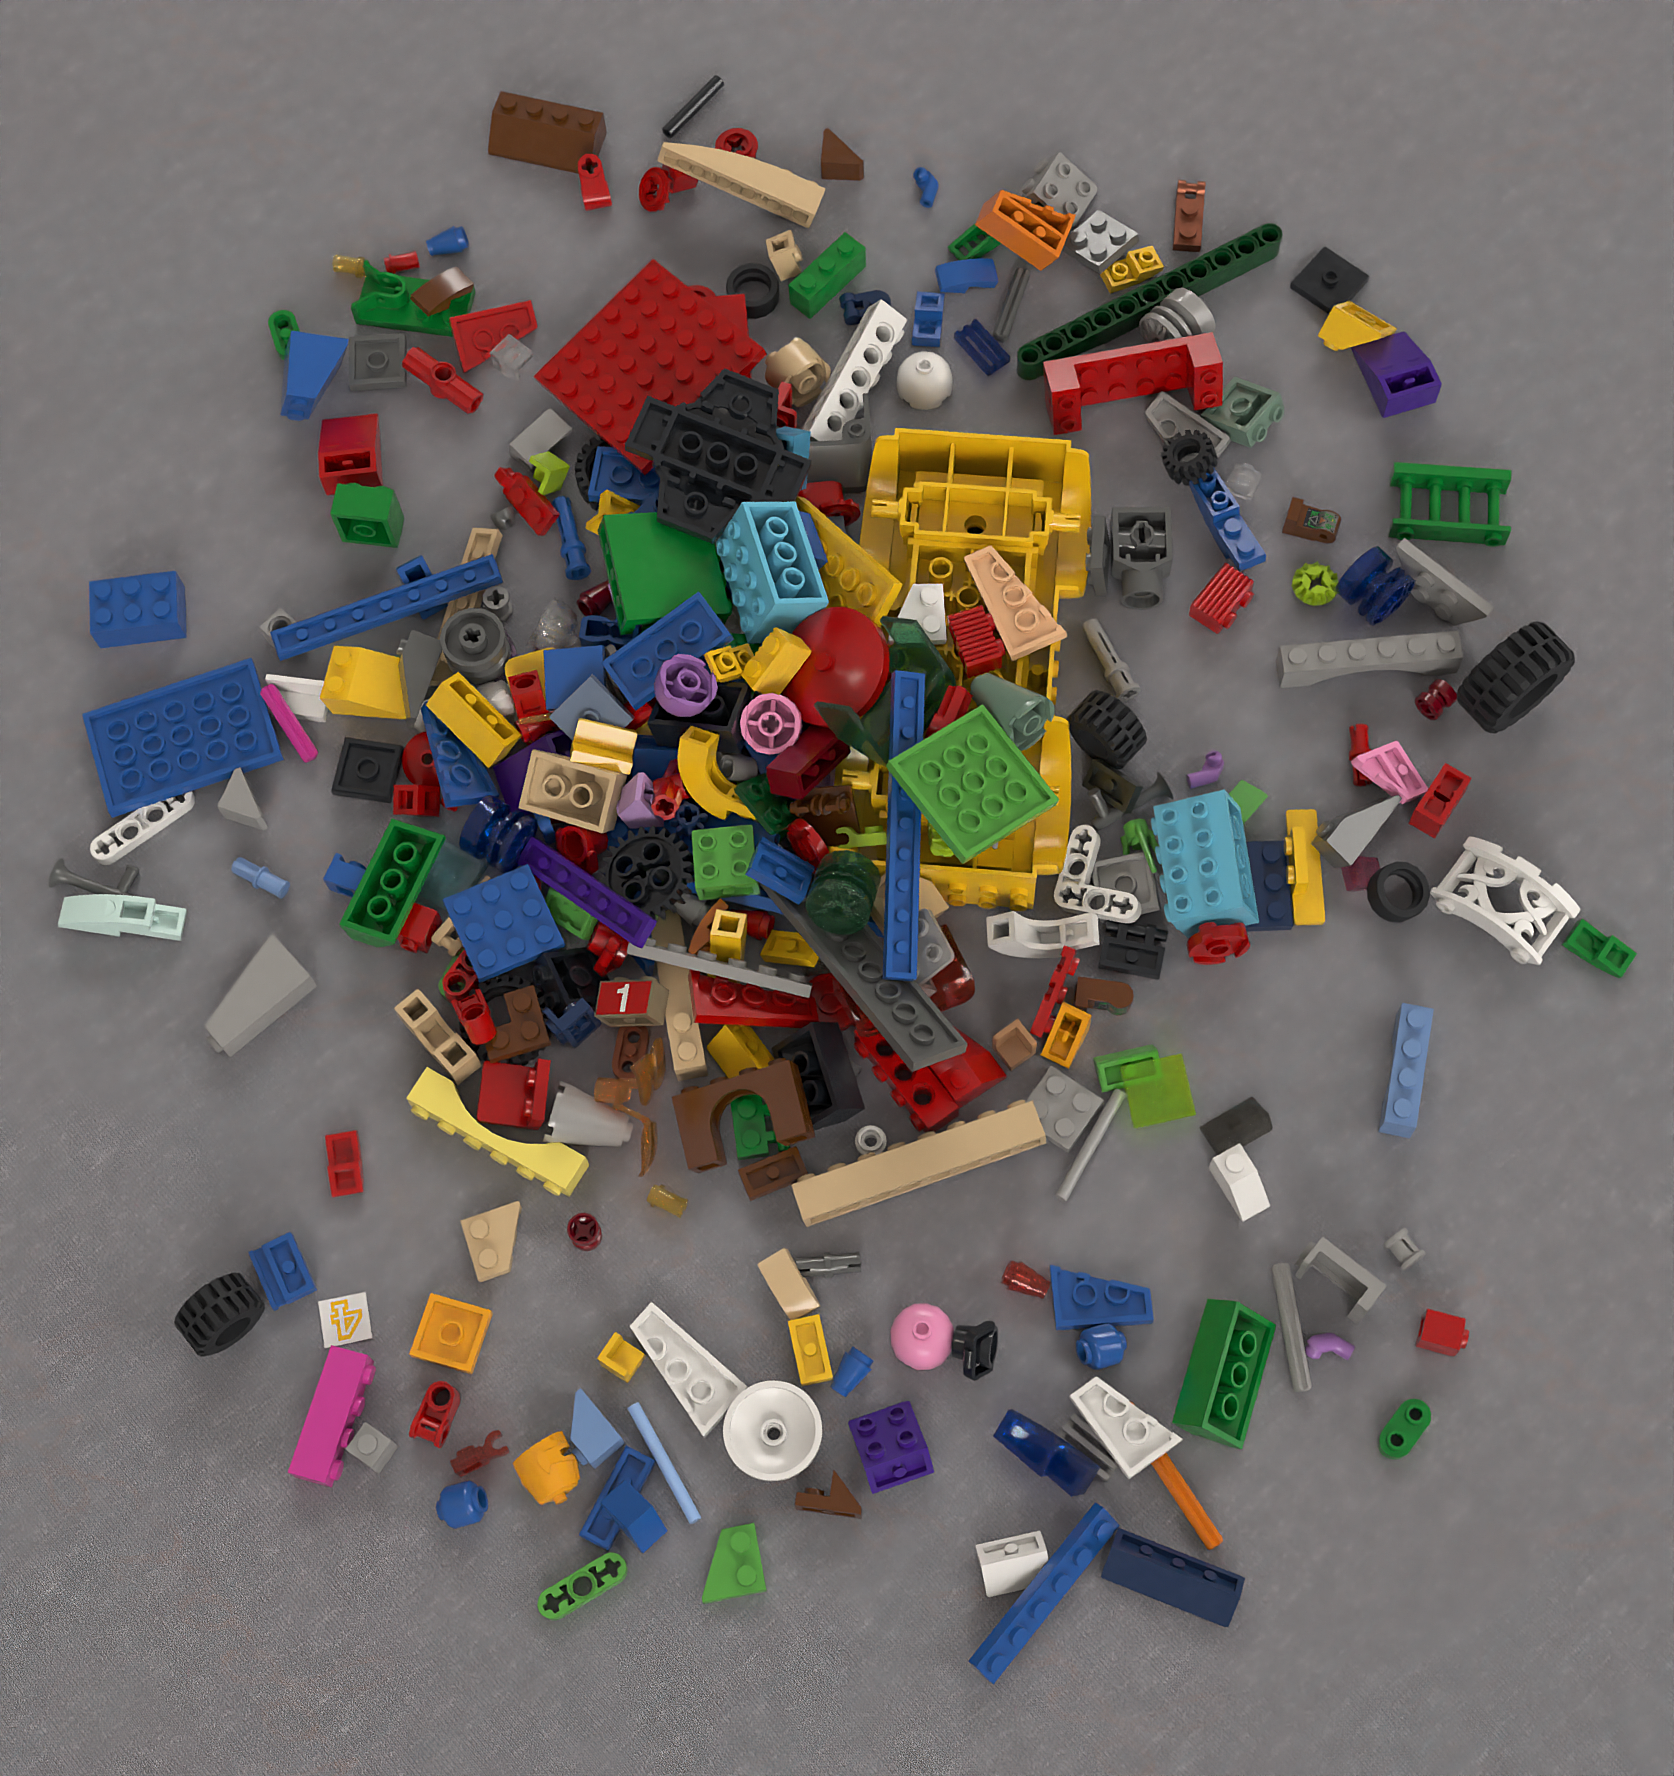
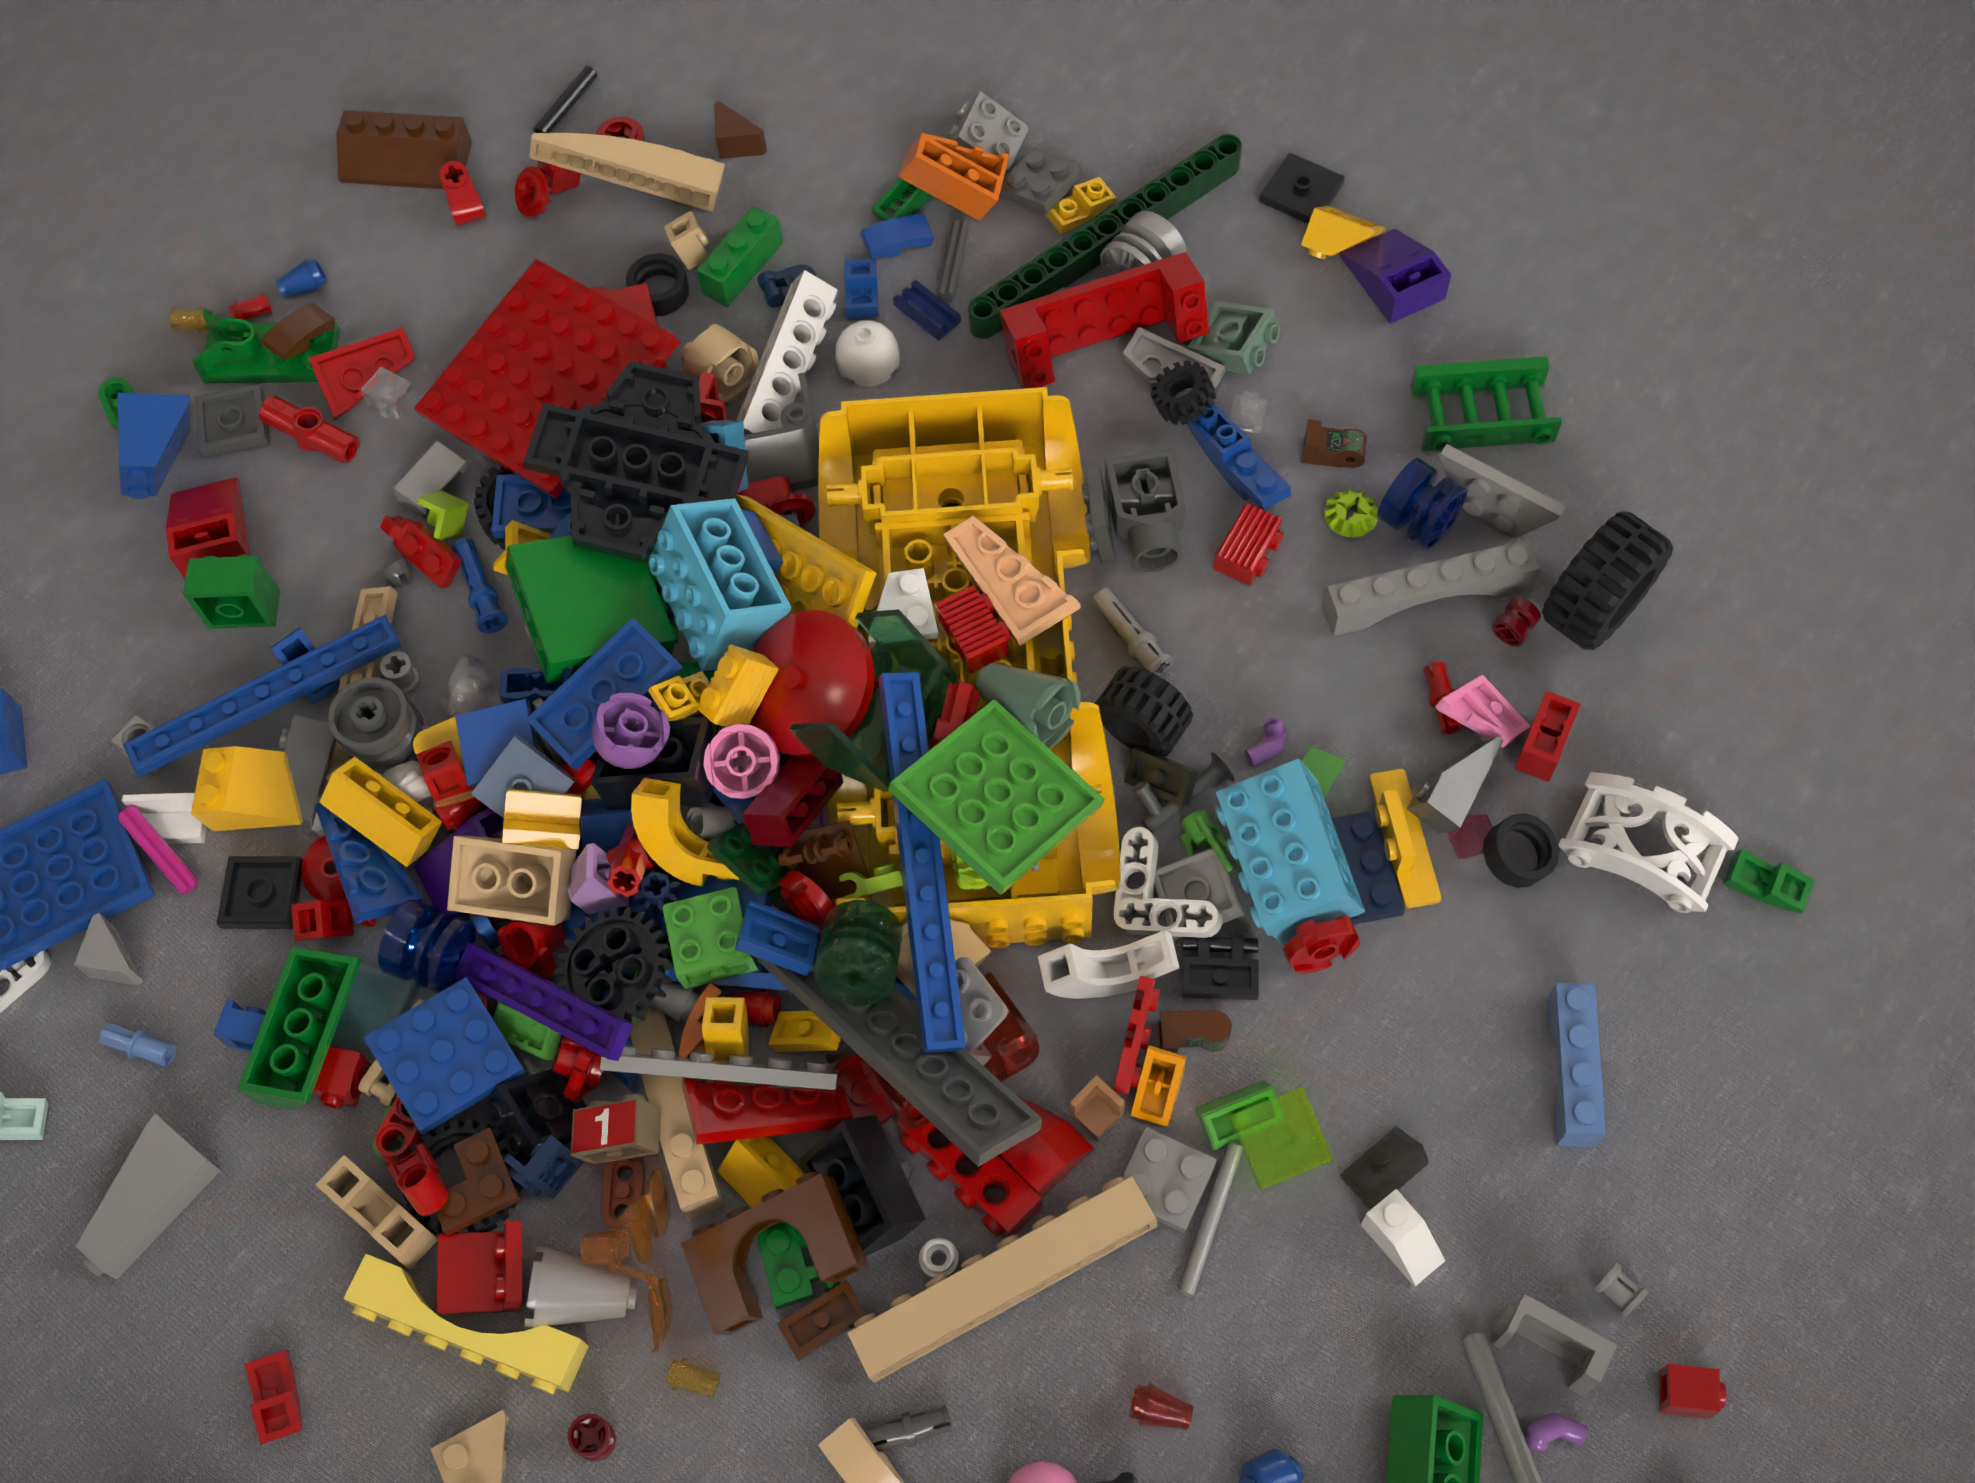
camera: 10 degrees left, 5 degrees down
(595, 599) = (515, 651): dark red cone -> none
(927, 184) = (839, 147): blue arm -> none
(1091, 1301) = (1250, 1422): blue wing -> none
(1189, 216) = (1134, 142): copper plate -> none

